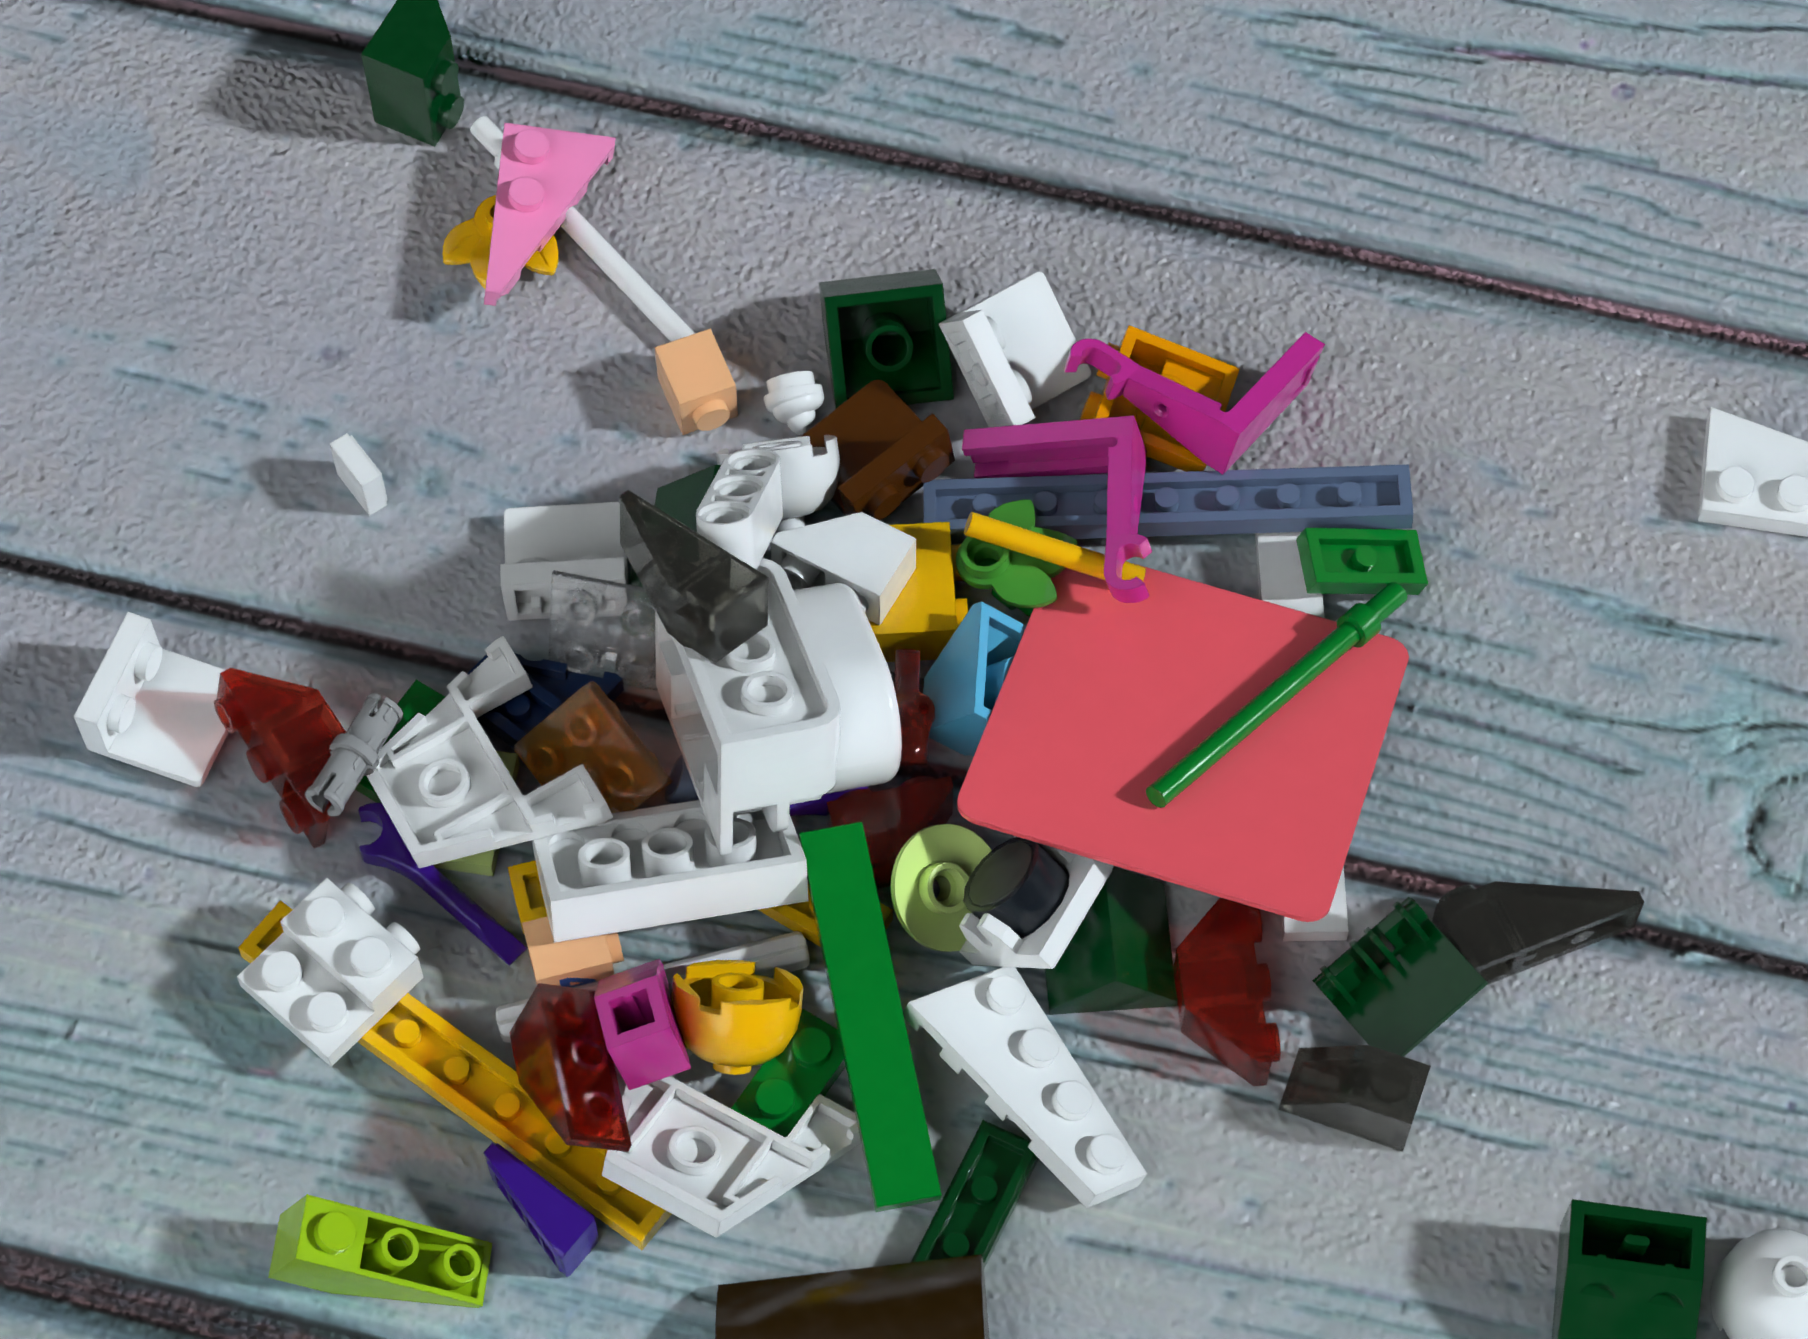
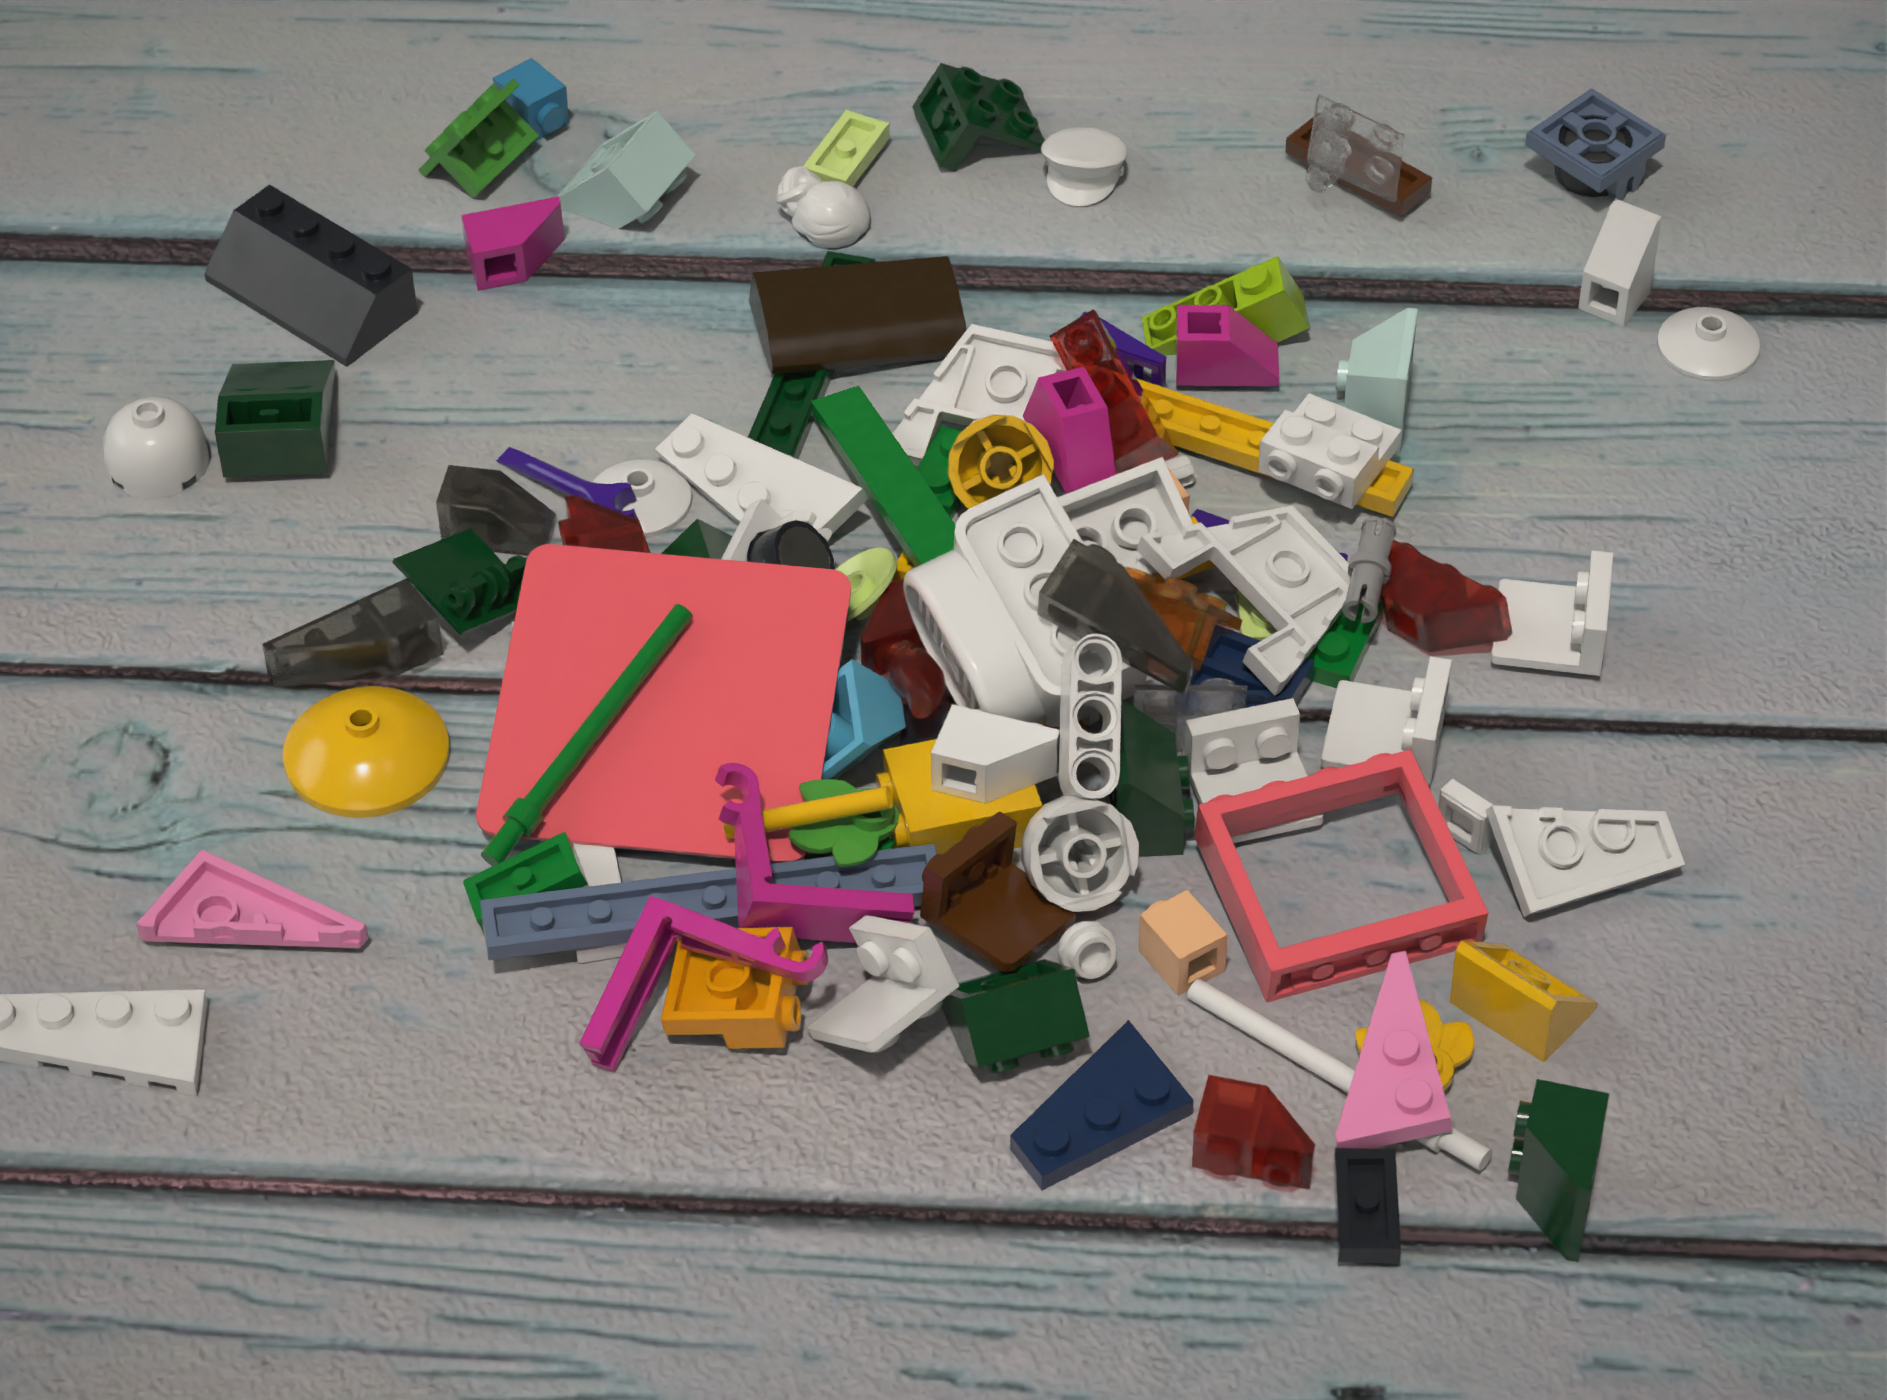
camera: 170 degrees right, 15 degrees down
(220, 1079) = (1381, 370): none -> light aqua slope
(256, 404) = (1577, 854): none -> white wing
(379, 272) = (1516, 997): none -> yellow slope
(393, 600) = (1389, 720): none -> white bracket
(406, 1177) = (1222, 349): none -> dark pink slope
(506, 344) = (1356, 950): none -> coral window
(606, 90) = (1367, 1205): none -> black plate
(695, 173) = (1250, 1135): none -> clear red slope
(822, 240) = (1100, 1110): none -> dark blue wing
(1182, 1149) = (660, 492): none -> white dish
(1223, 1095) = (609, 495): none -> dark purple piece
(1516, 829) = (366, 751): none -> yellow dish
(1669, 602) = (231, 905): none -> bright pink wing

